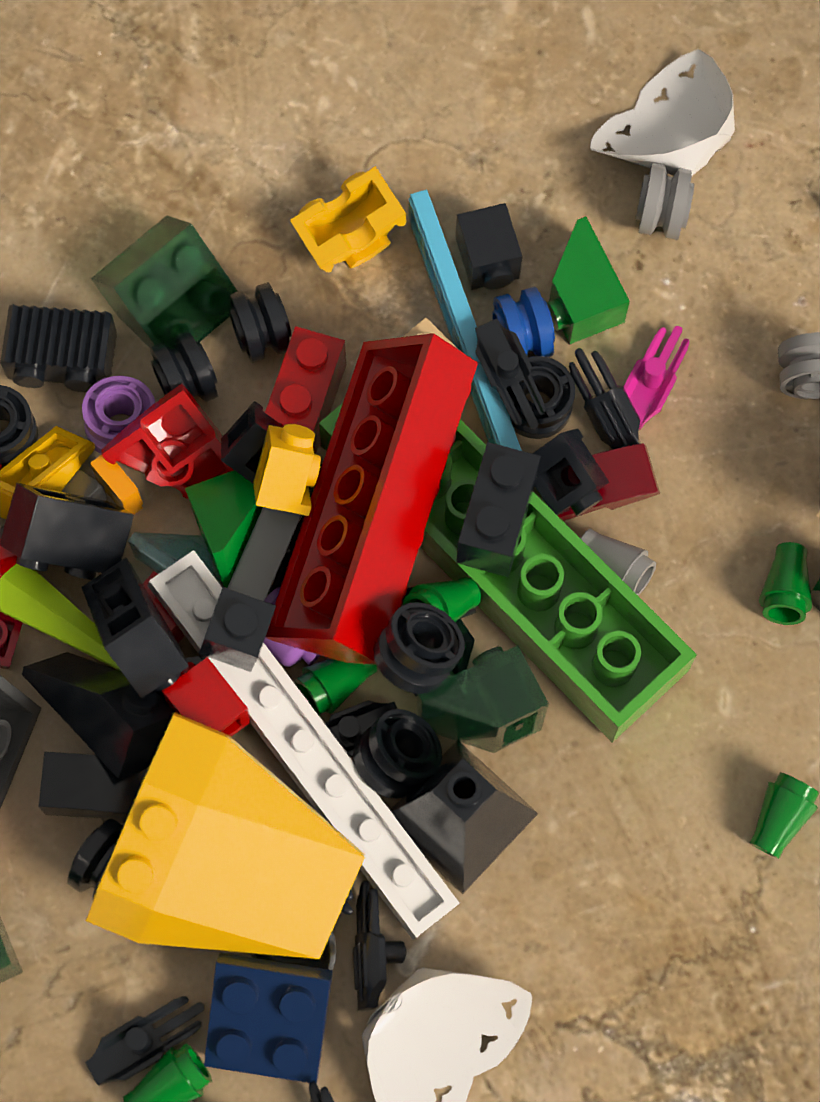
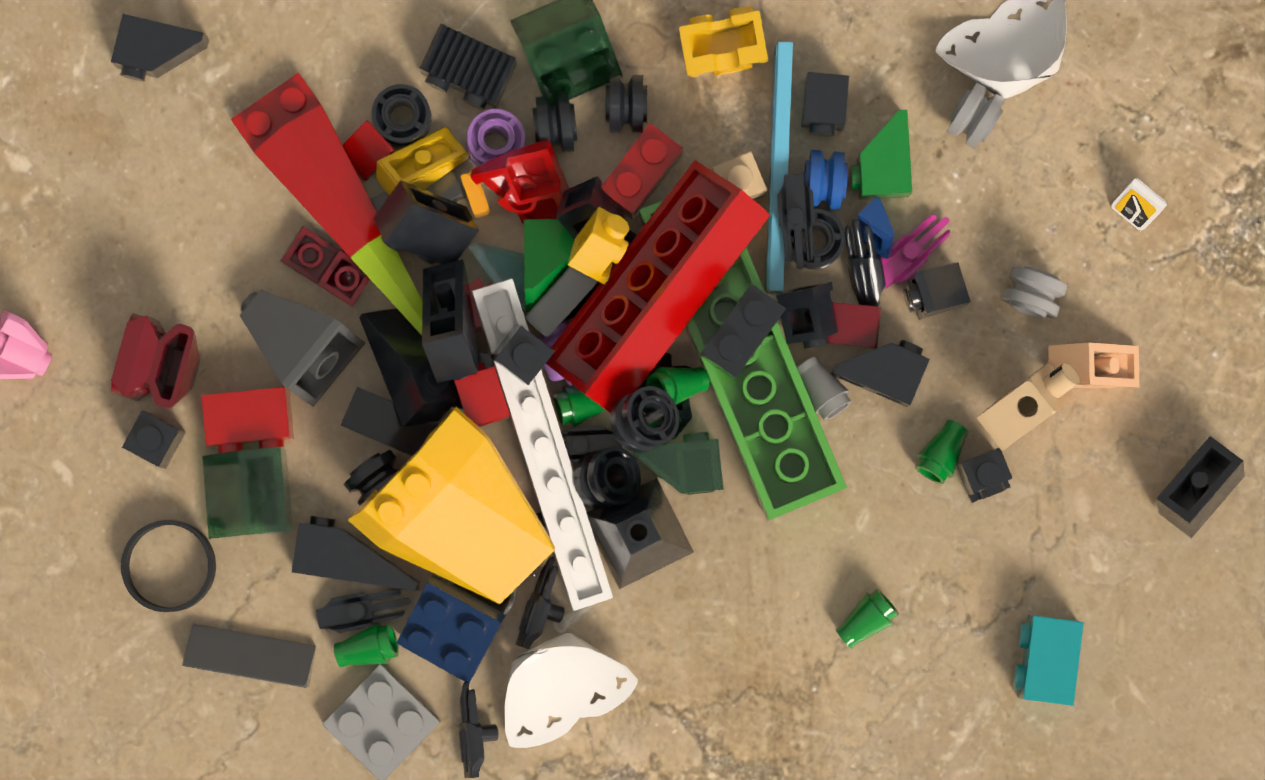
camera: 20 degrees right, 15 degrees up
(90, 978) = (342, 556): none -> black slope
(612, 350) = (877, 219): none -> blue slope
(682, 515) = (886, 371): none -> black slope
(701, 402) = (936, 291): none -> black slope

